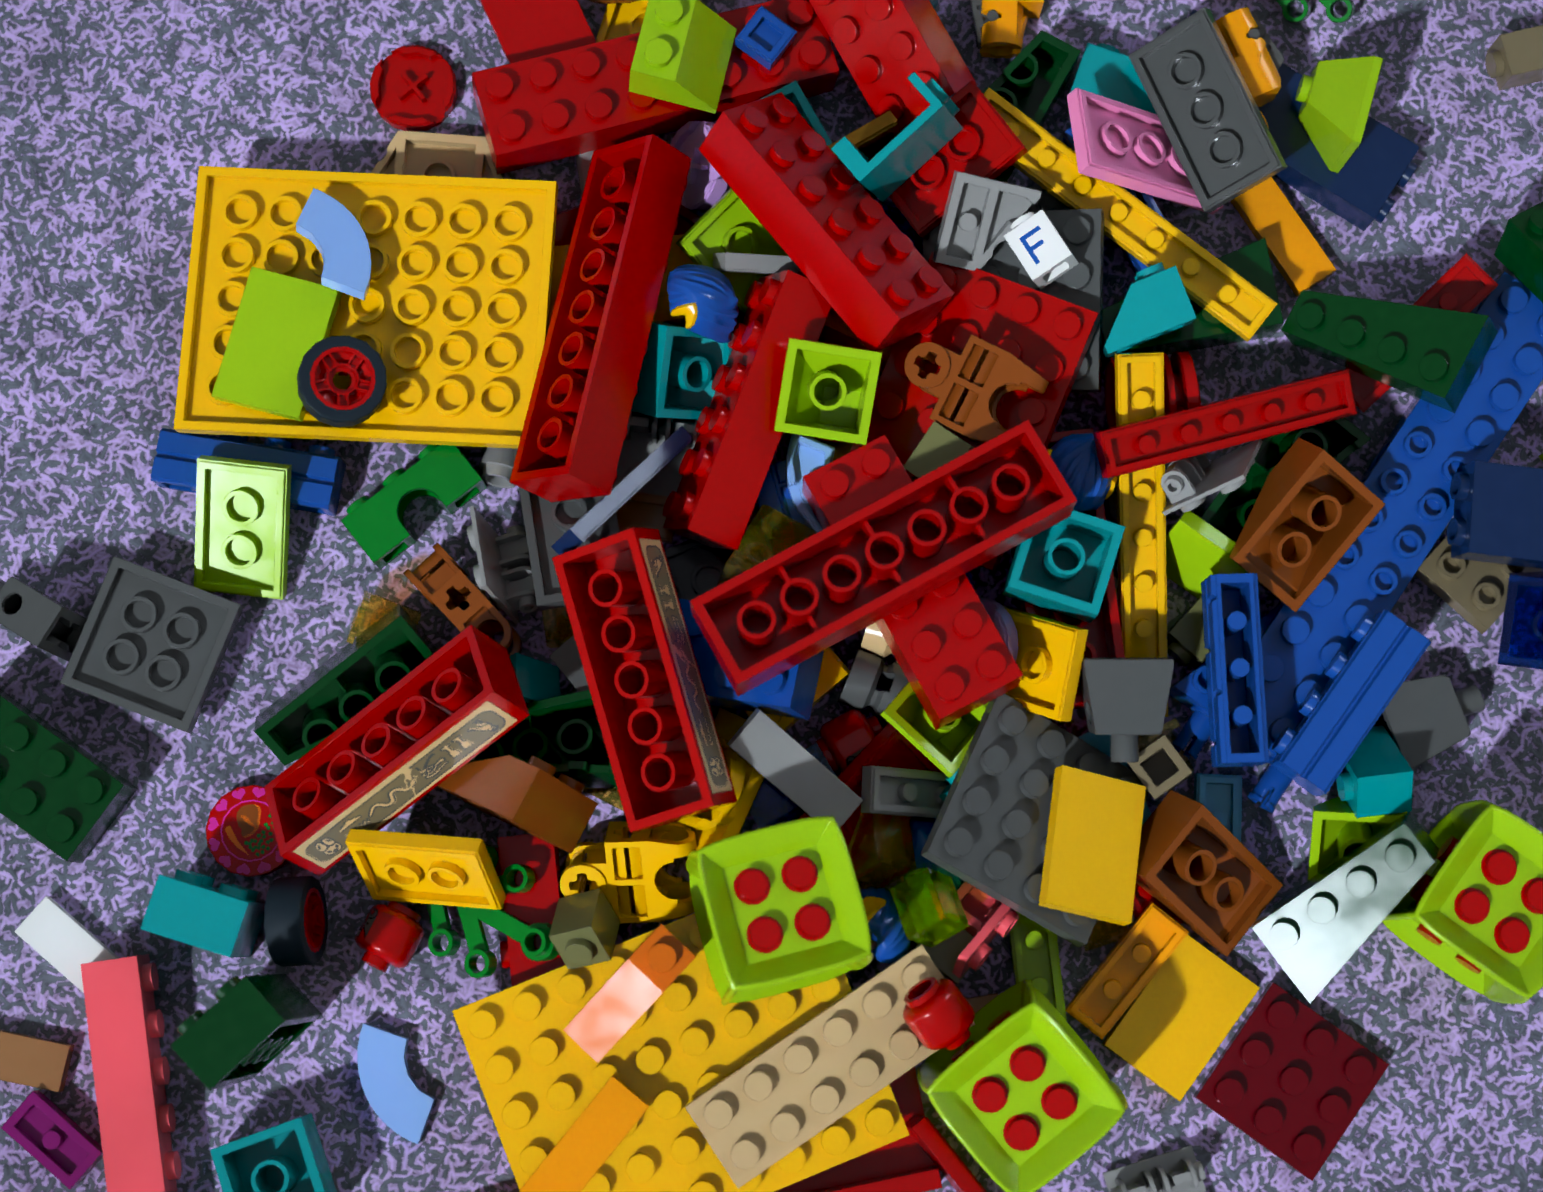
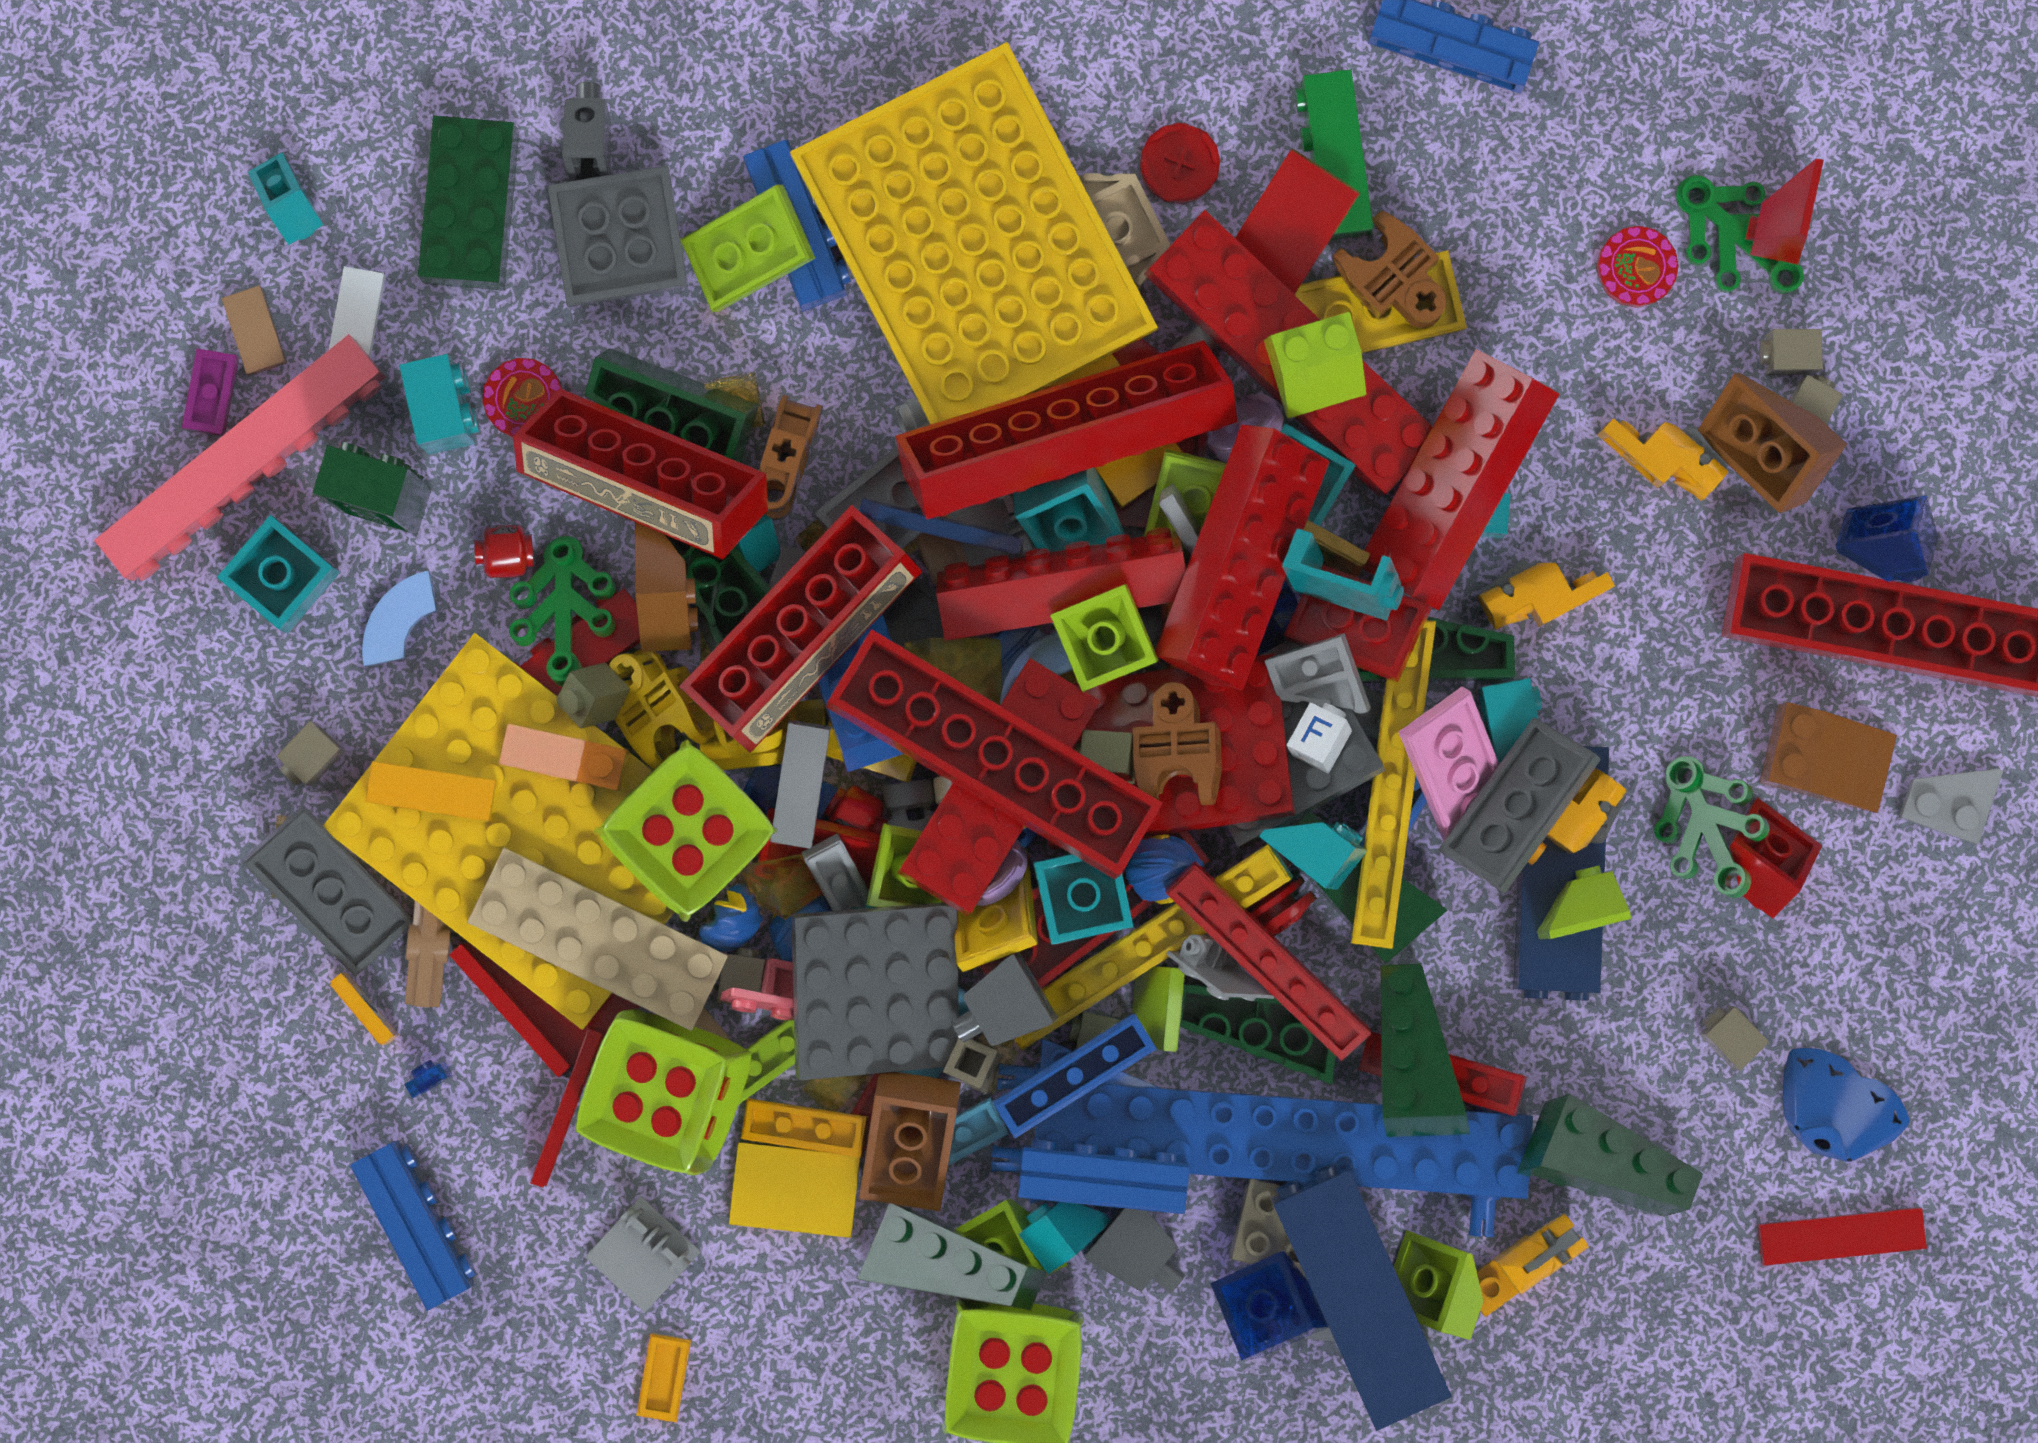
camera: 55 degrees right, 5 degrees up
(270, 335) = (900, 191): lime tile -> none
(296, 921) = (474, 474): black wheel -> none
(339, 241) = (1007, 192): light blue tile -> none
(345, 357) = (904, 281): wheel -> none
(379, 520) = (814, 350): green arch -> none
(426, 869) = (567, 550): yellow tile -> none
(502, 566) = (833, 466): light grey hinge -> none
(704, 299) = (1128, 498): blue hair -> none
(765, 38) = (1373, 421): blue tile -> none
(929, 907) = (760, 945): clear neon green brick -> none
(938, 1014) = (680, 996): red head -> none
(1092, 845) = (877, 1042): yellow tile -> none
(1286, 236) = (1467, 929): light orange tile -> none
(1291, 1080) = (794, 1301): dark red plate -> none
(1303, 523) = (1223, 1064): dark orange slope -> none

